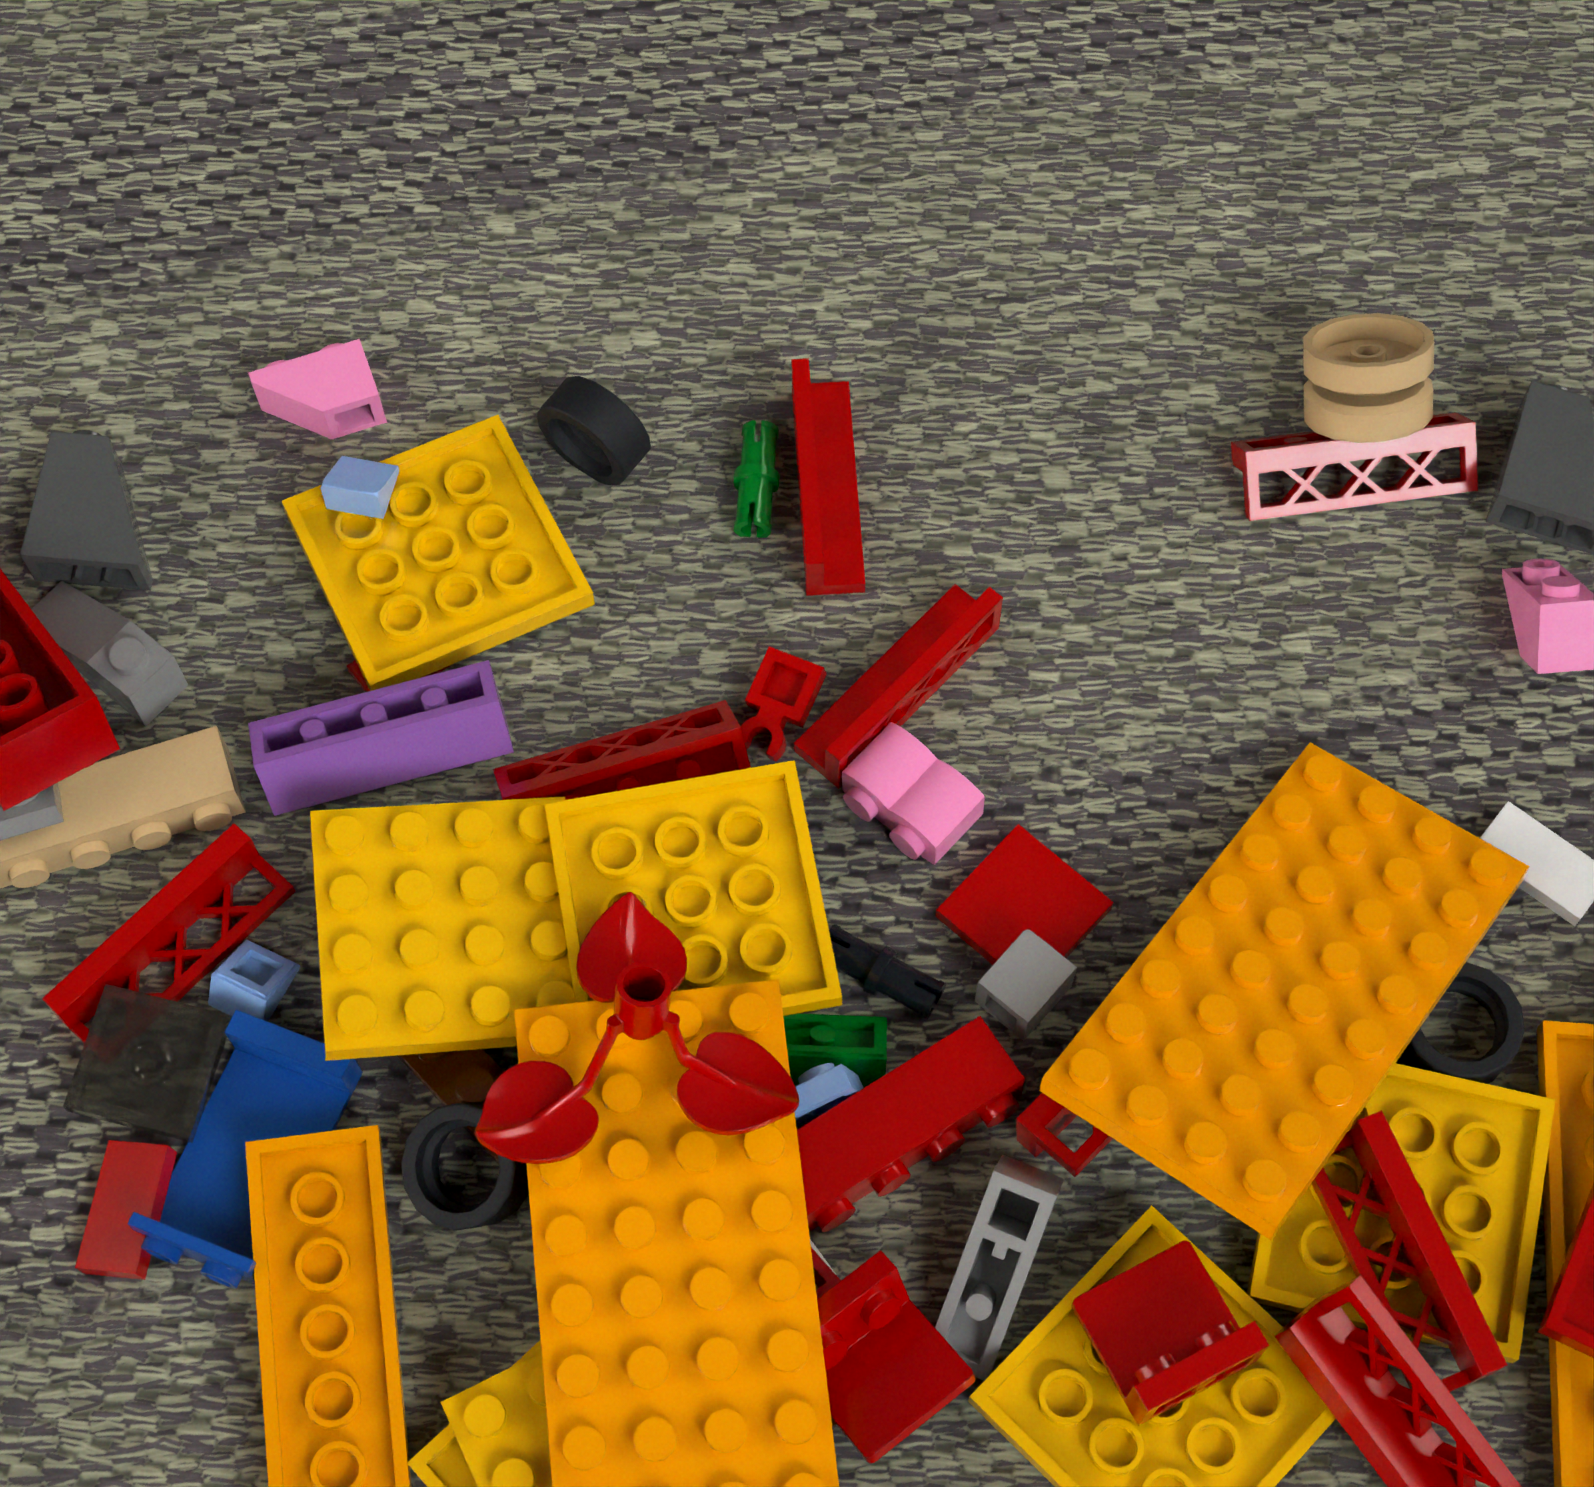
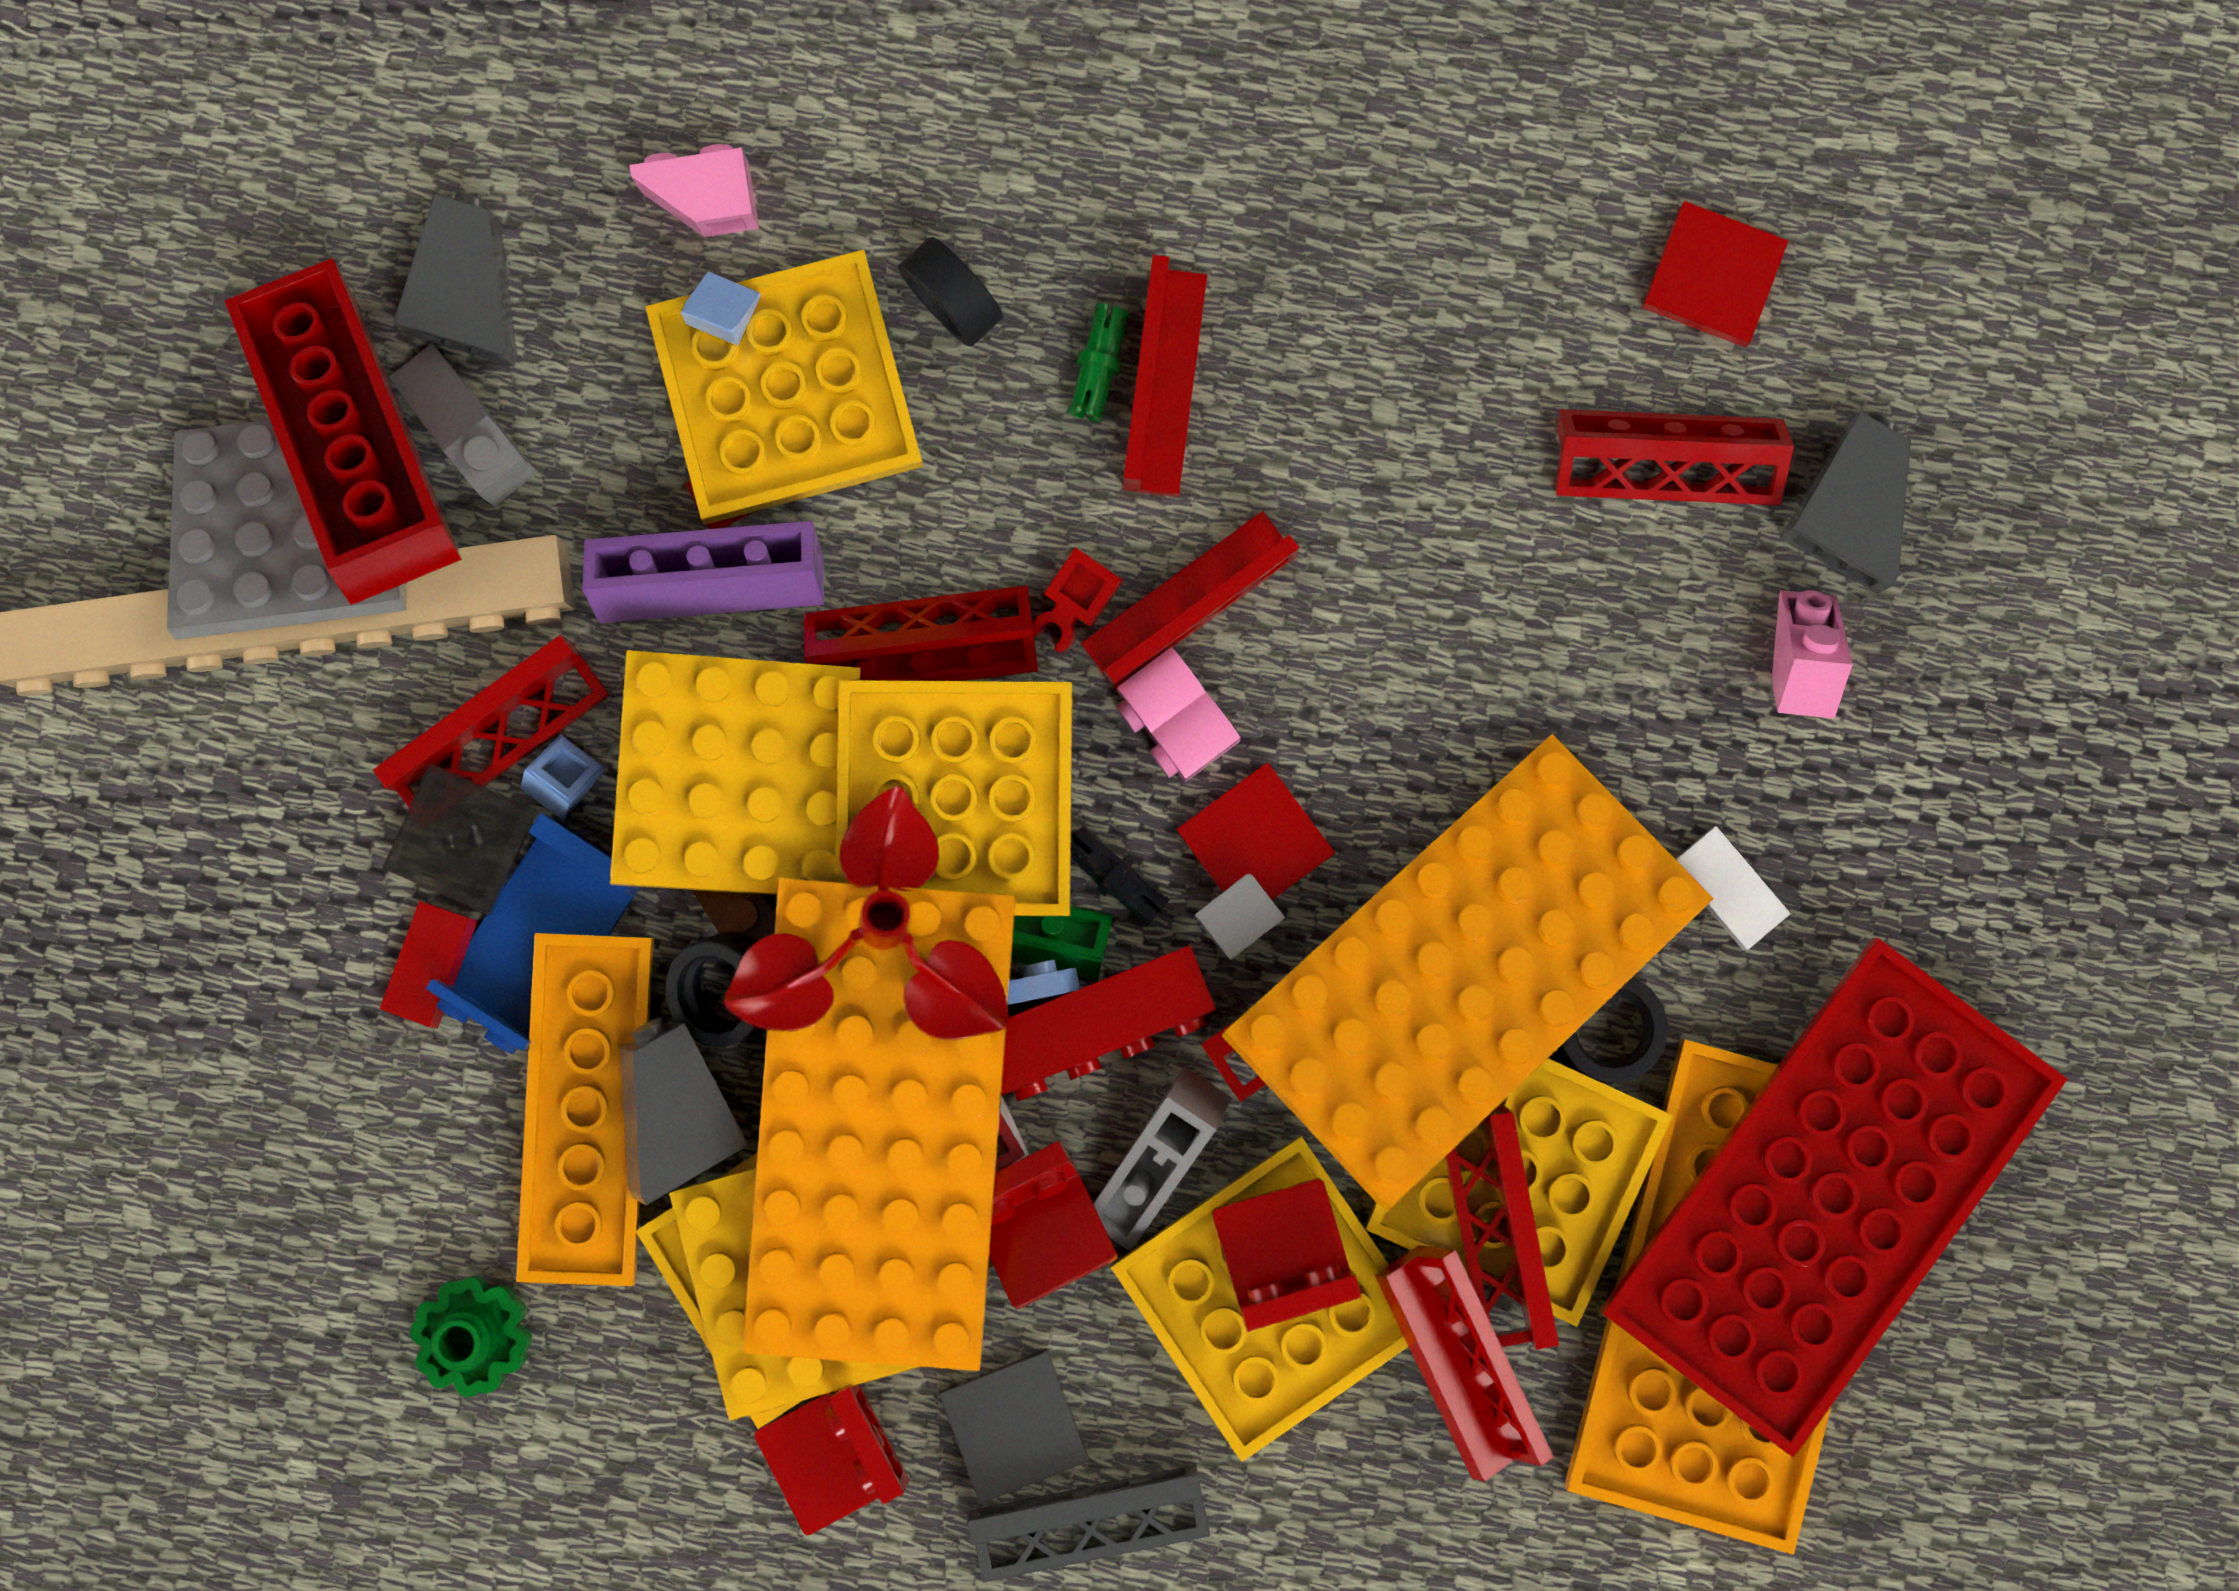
camera: 10 degrees right, 20 degrees up
(429, 1305) = (671, 1111): none -> dark grey slope
(1343, 282) = (1715, 274): none -> red tile
(1368, 377) = (1703, 381): tan wheel -> none

